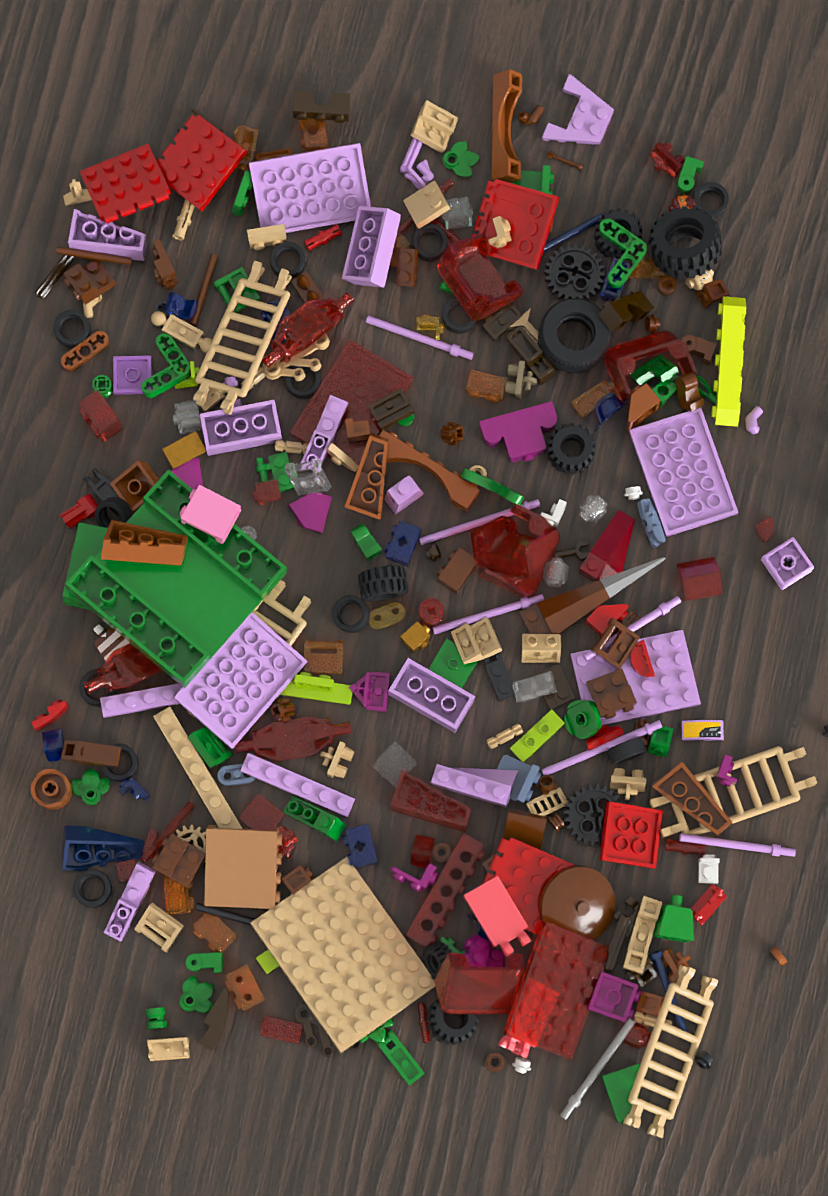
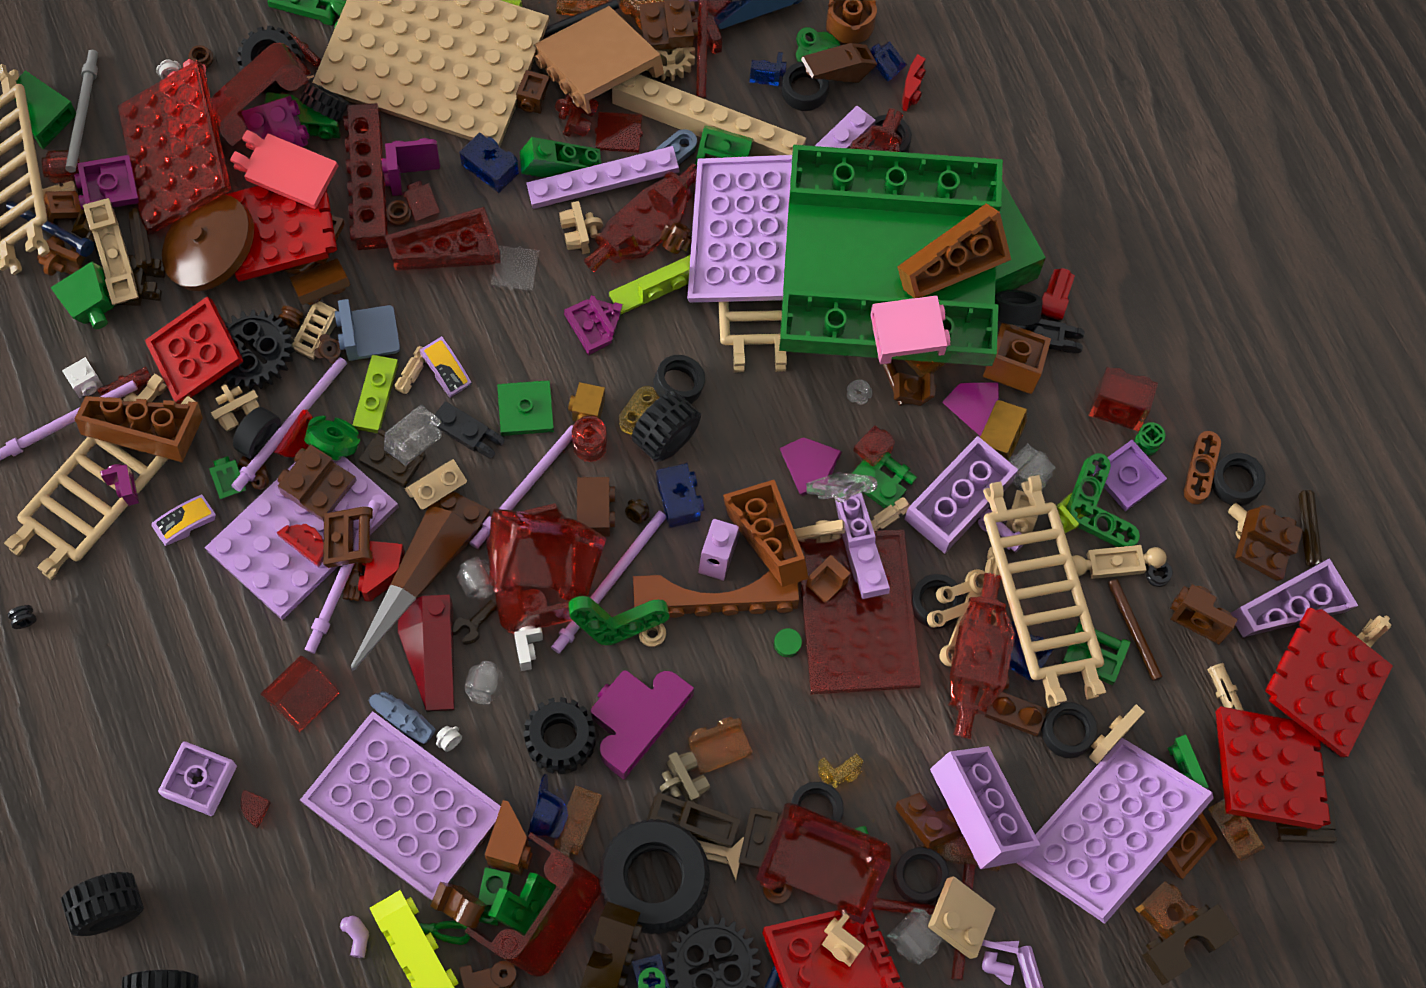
camera: 140 degrees right, 10 degrees down
(93, 255) = (1288, 574): reddish brown bar -> none
(180, 306) = (1143, 586): clear blue bracket -> none
(323, 237) = (1052, 790): red pin -> none
(323, 663) = (671, 314): clear orange plate -> none
(366, 542) = (722, 469): green leg -> none
(391, 409) = (807, 629): dark brown plate -> none
(431, 695) = (523, 351): lavender brick -> none
(452, 433) = (716, 656): reddish brown gear -> none
(454, 349) = (790, 763): lavender bar -> none
(476, 641) = (515, 444): tan slope -> none
(482, 784) = (408, 295): lavender wedge -> none
(484, 722) = (445, 366): none -> slope
(652, 323) = (569, 970): reddish brown plate -> none
(708, 904) = (61, 341): red hinge -> none

